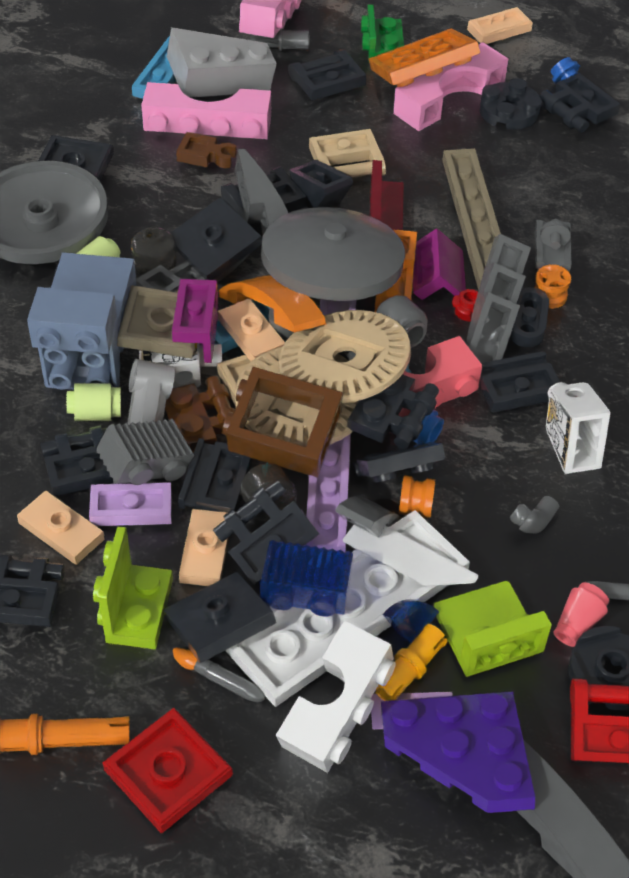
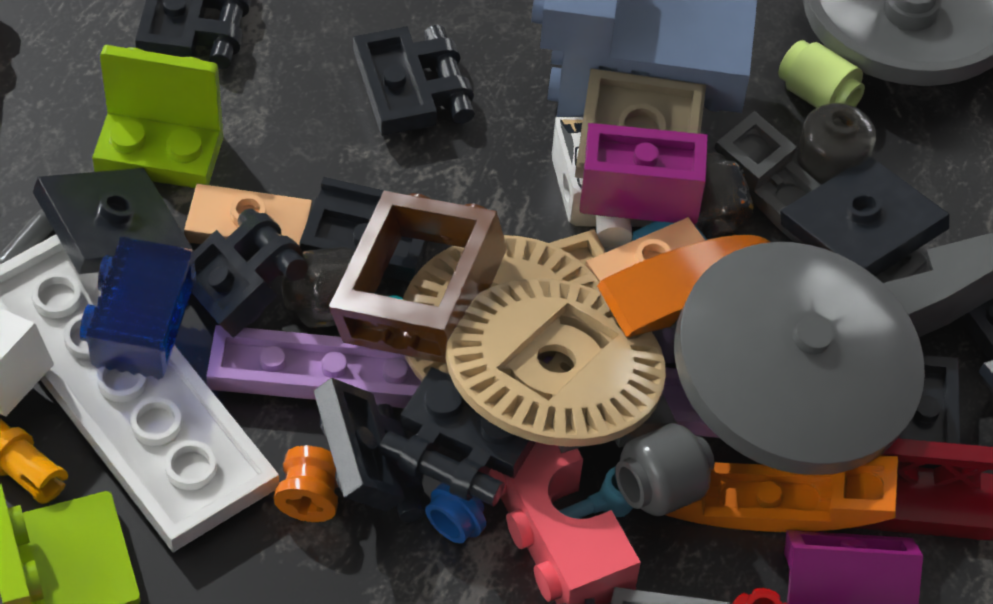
camera: 90 degrees right, 5 degrees up
(60, 527) = (297, 59): light nougat plate -> none
(94, 402) = (518, 84): yellowish green brick -> none
(130, 504) = (325, 129): lavender plate -> none
(144, 452) = (395, 128): dark grey brick -> none
(150, 387) = (520, 132): light grey piece -> none
(189, 411) = (519, 196): reddish brown plate -> none
(366, 514) = (261, 396): dark grey slope -> none
(409, 557) = (191, 453): white sticker -> none
(410, 617) = (83, 451): clear blue tile -> none

